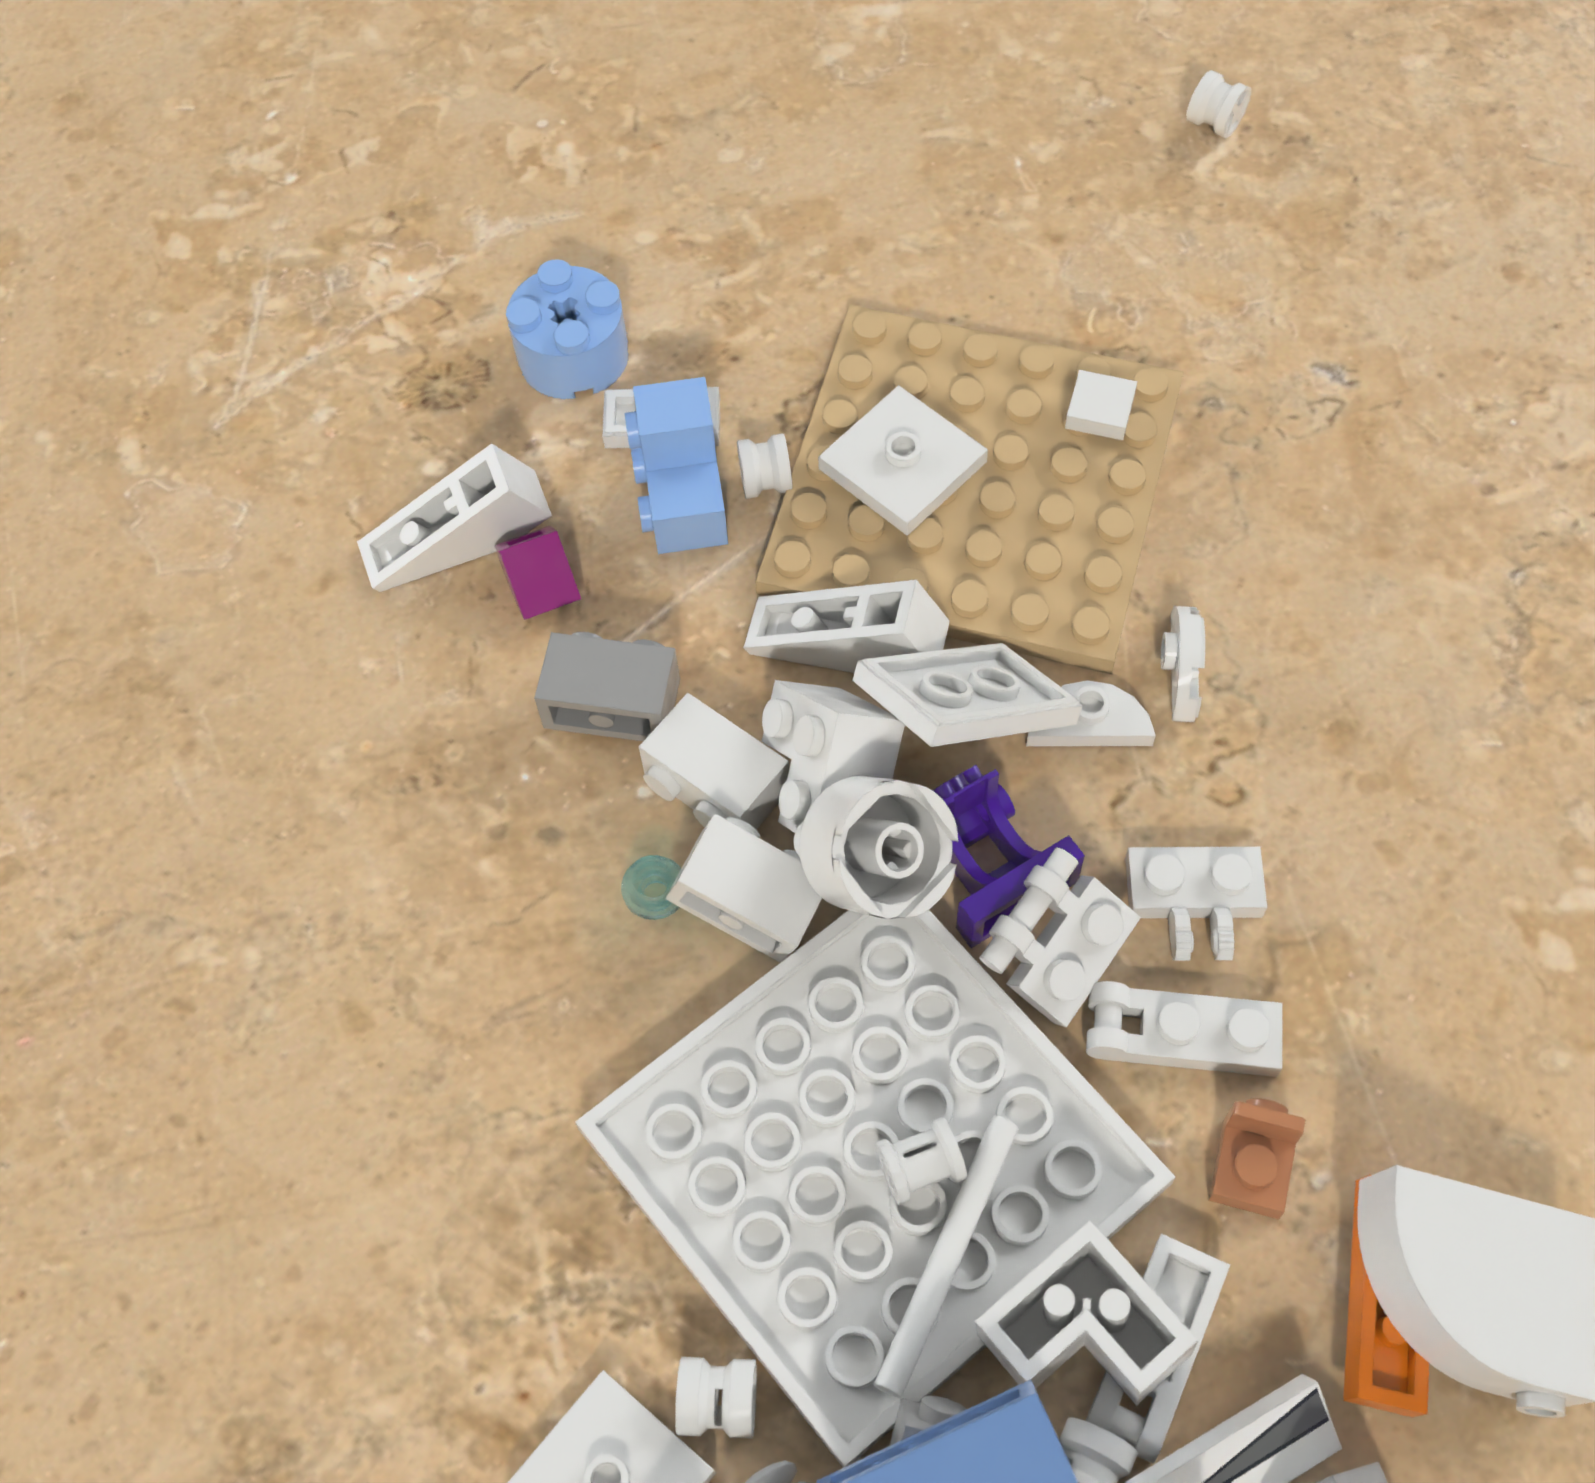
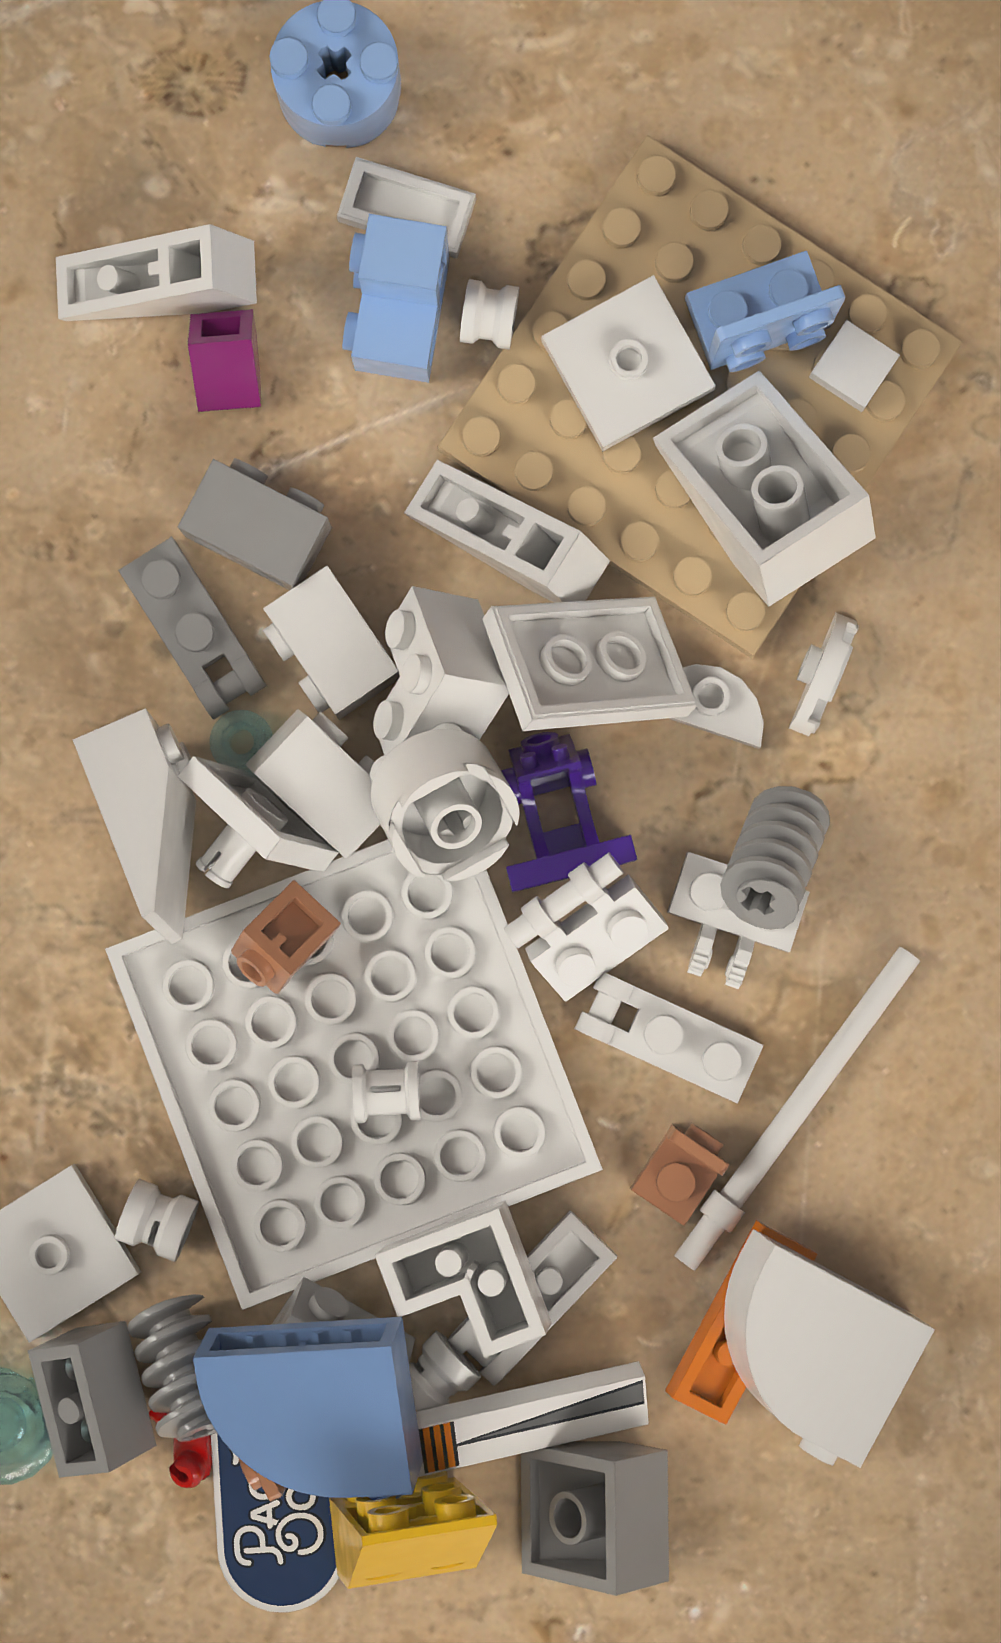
camera: 20 degrees right, 25 degrees up
(573, 802) = (191, 625): none -> light grey plate
(573, 952) = (146, 812): none -> white slope
(691, 931) = (254, 821): none -> white tile
(757, 1042) = (283, 938): none -> nougat bracket
(945, 1257) = (383, 1173): white bar -> none
(1010, 380) = (762, 311): none -> light blue bracket
(1073, 510) = (767, 487): none -> white slope
(1216, 813) = (775, 856): none -> light grey piece
(1316, 1181) = (723, 1208): none -> white bar

